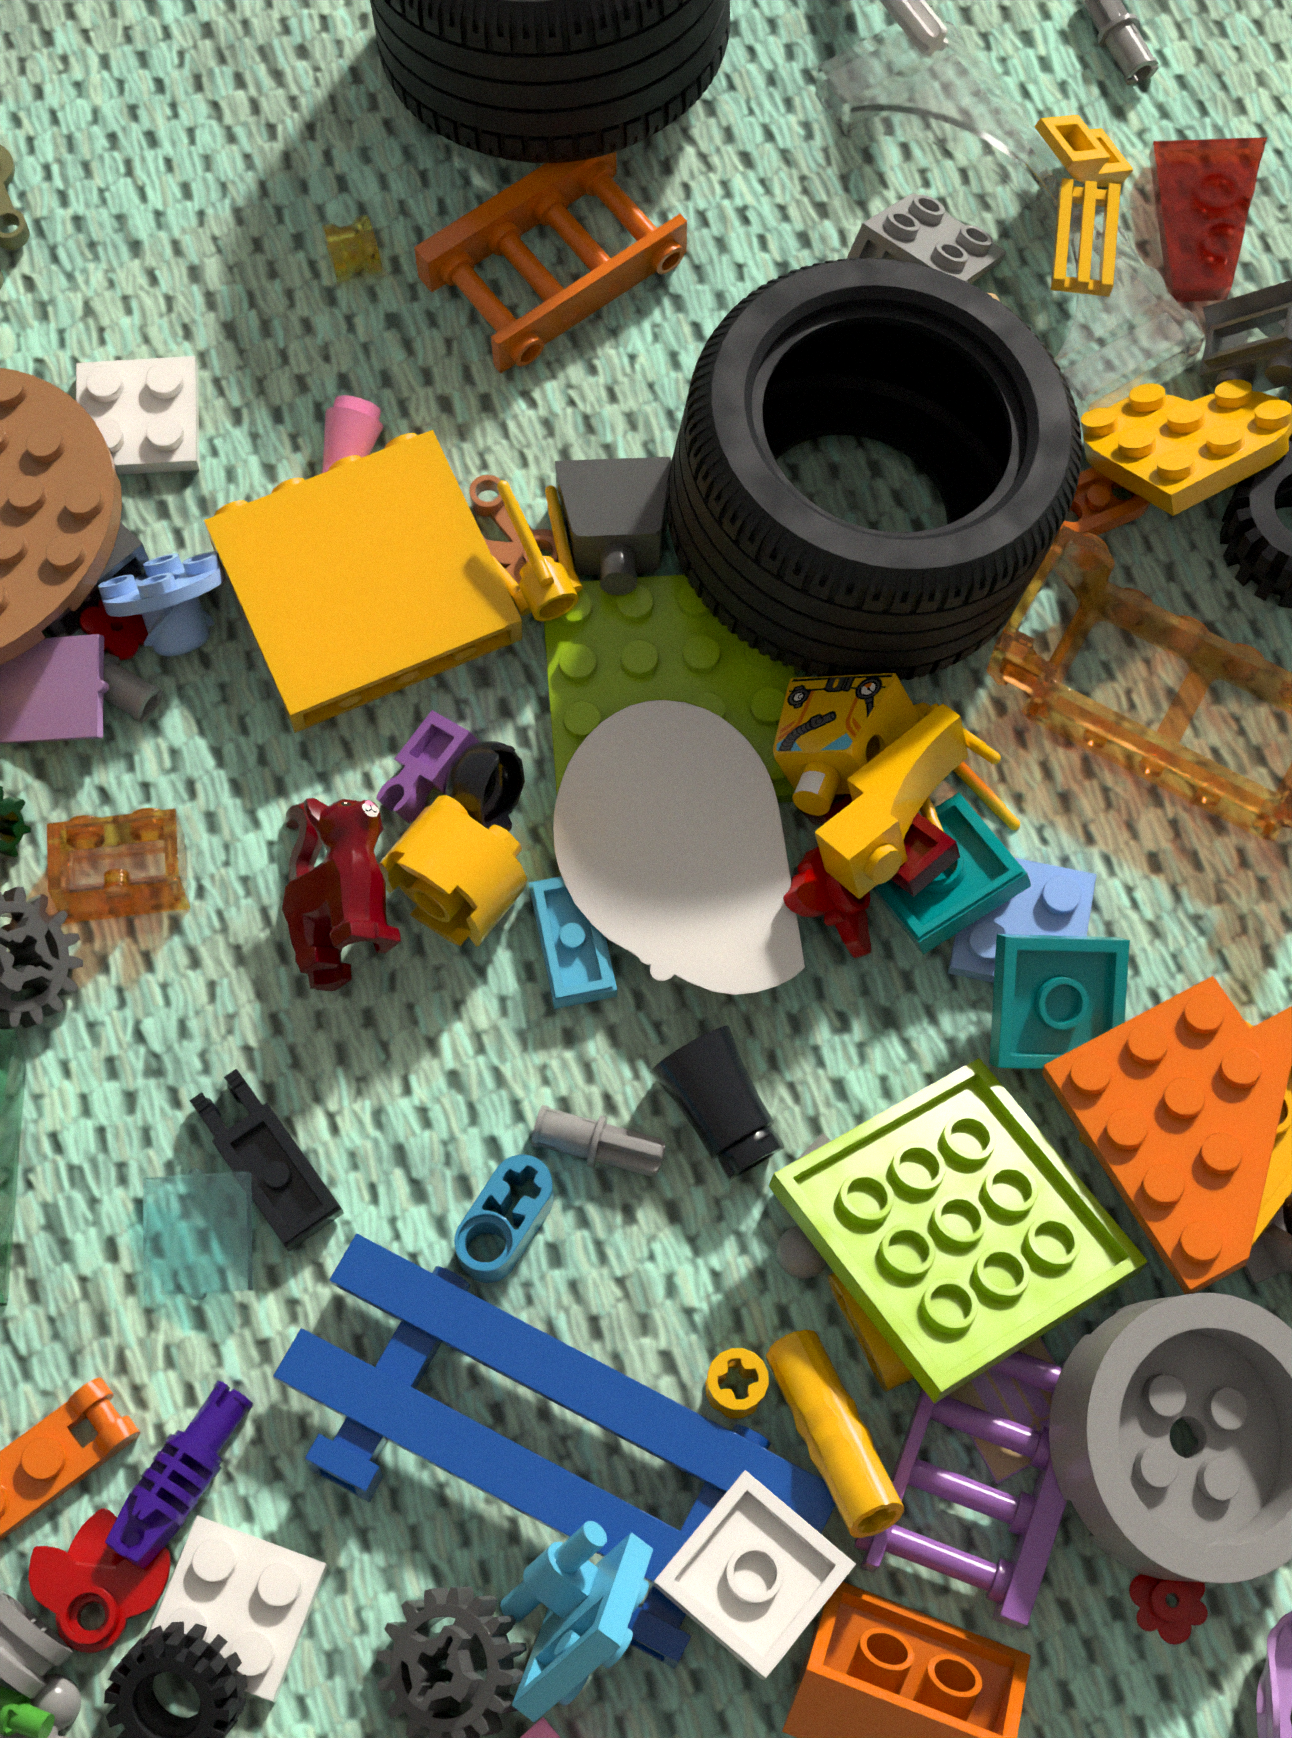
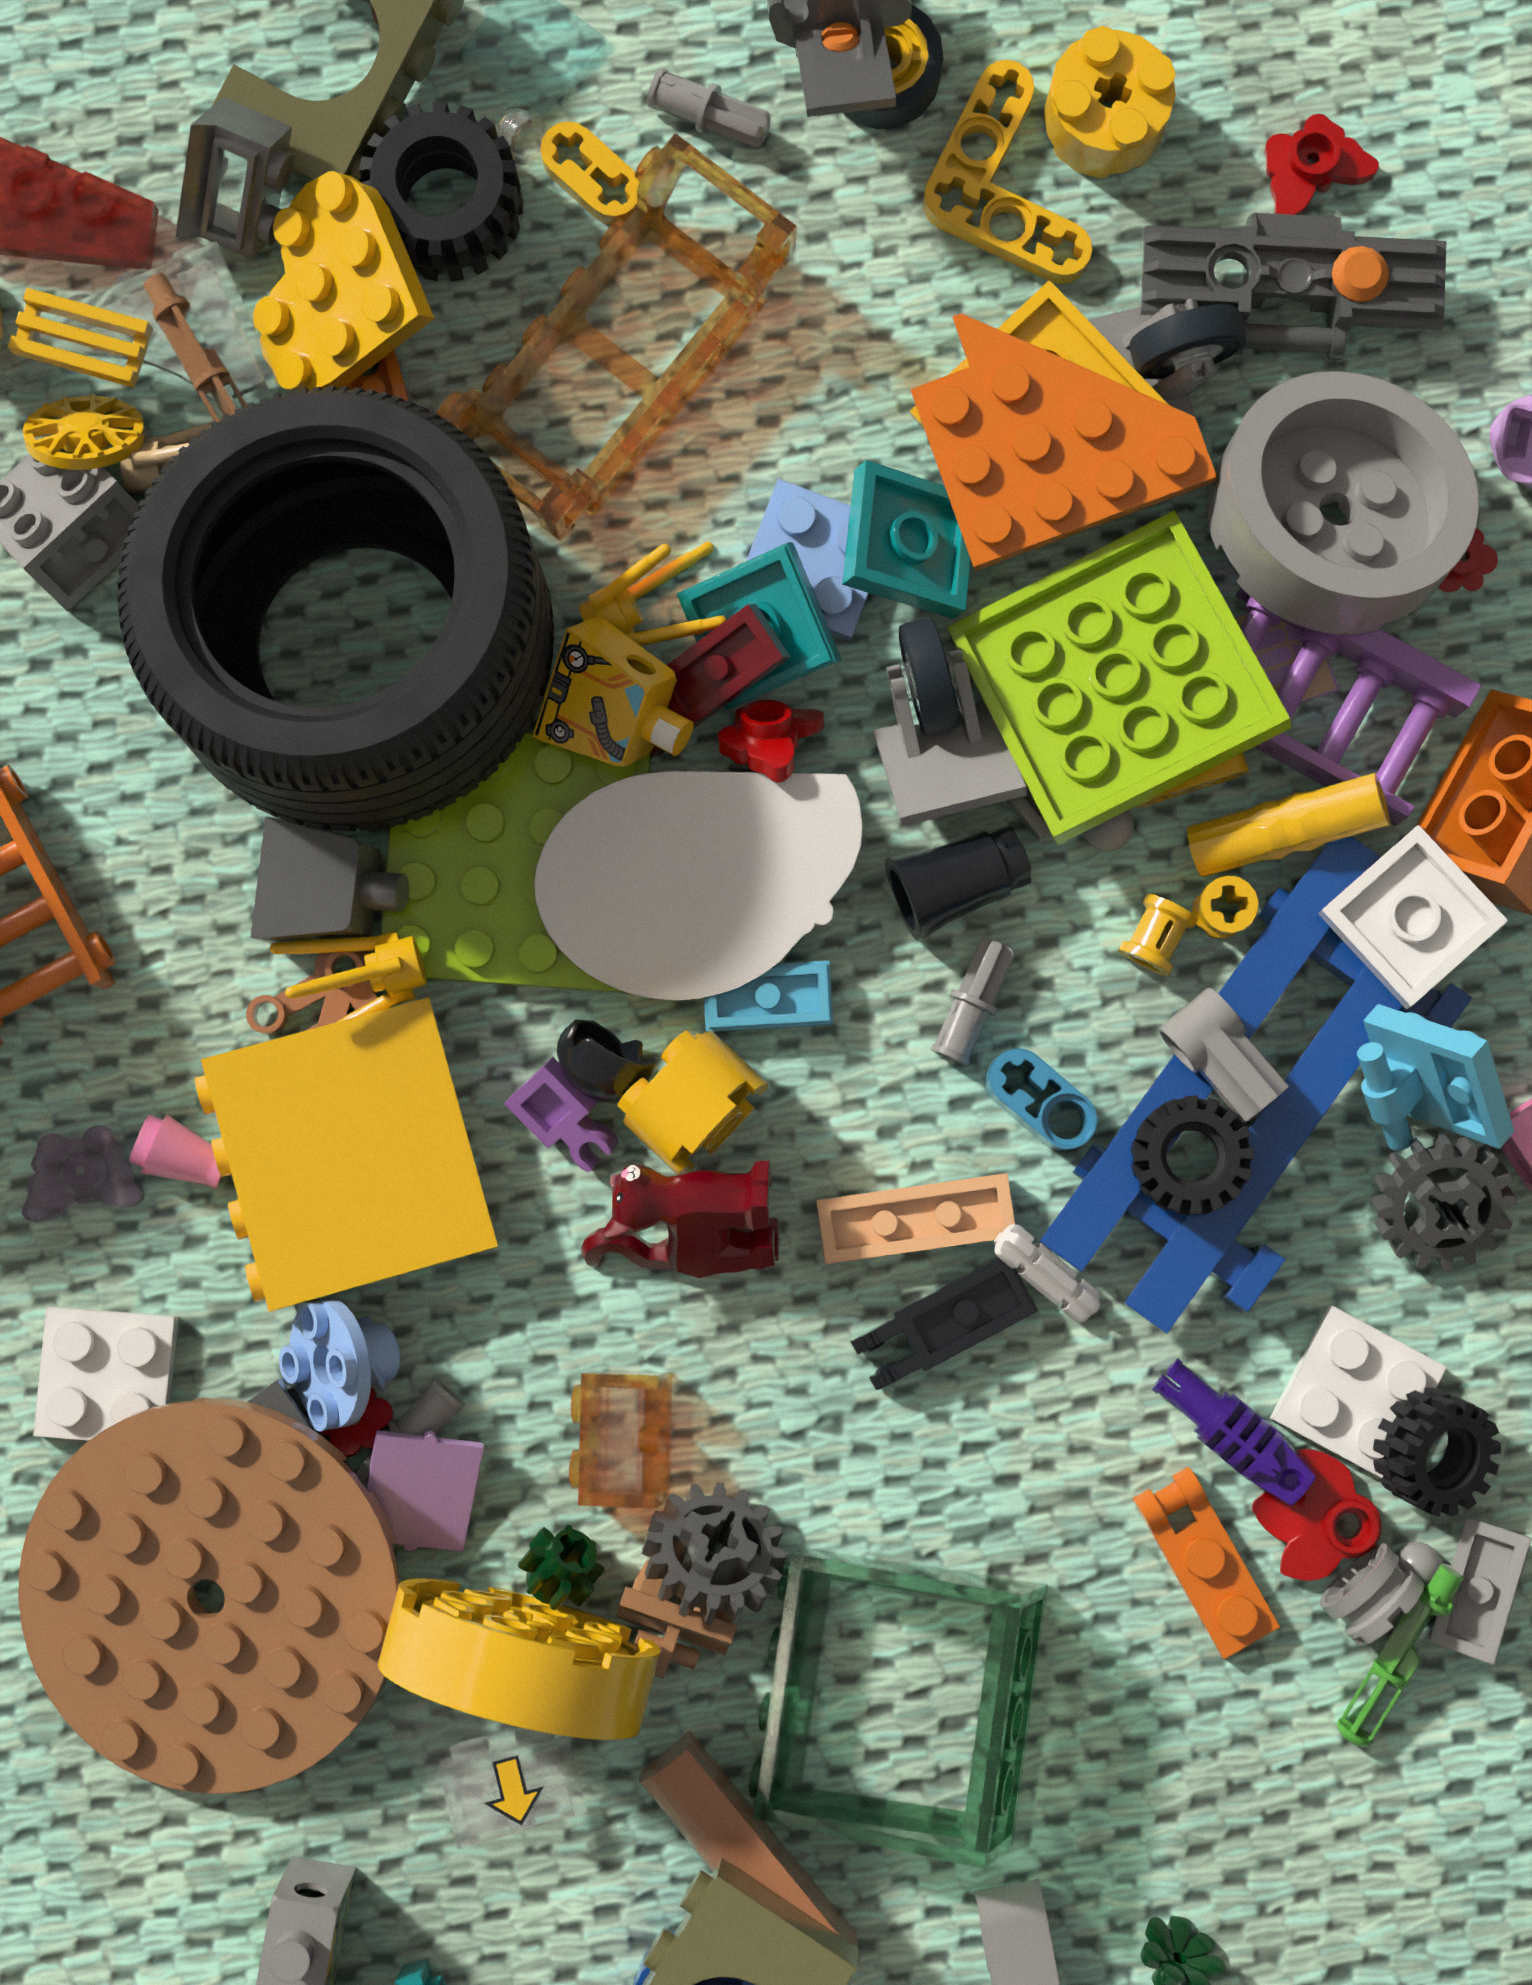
camera: 80 degrees left, 15 degrees up
(197, 1234) = (1010, 1394): clear light blue piece -> none
(306, 349) = (56, 1180): none -> animal
(324, 1250) = (1047, 1273): none -> white axle
(367, 1115) = (914, 1218): none -> light nougat plate
(454, 1327) = (1220, 1127): none -> black tyre
(584, 1374) = (1212, 1041): none -> light grey piece
(674, 1324) = (1158, 934): none -> yellow bush
(859, 1066) = (949, 757): none -> light grey plate
(866, 838) = (737, 687): yellow slope -> none
(1002, 260) = (84, 432): none -> yellow wheel
(1084, 337) = (200, 364): none -> medium nougat piece

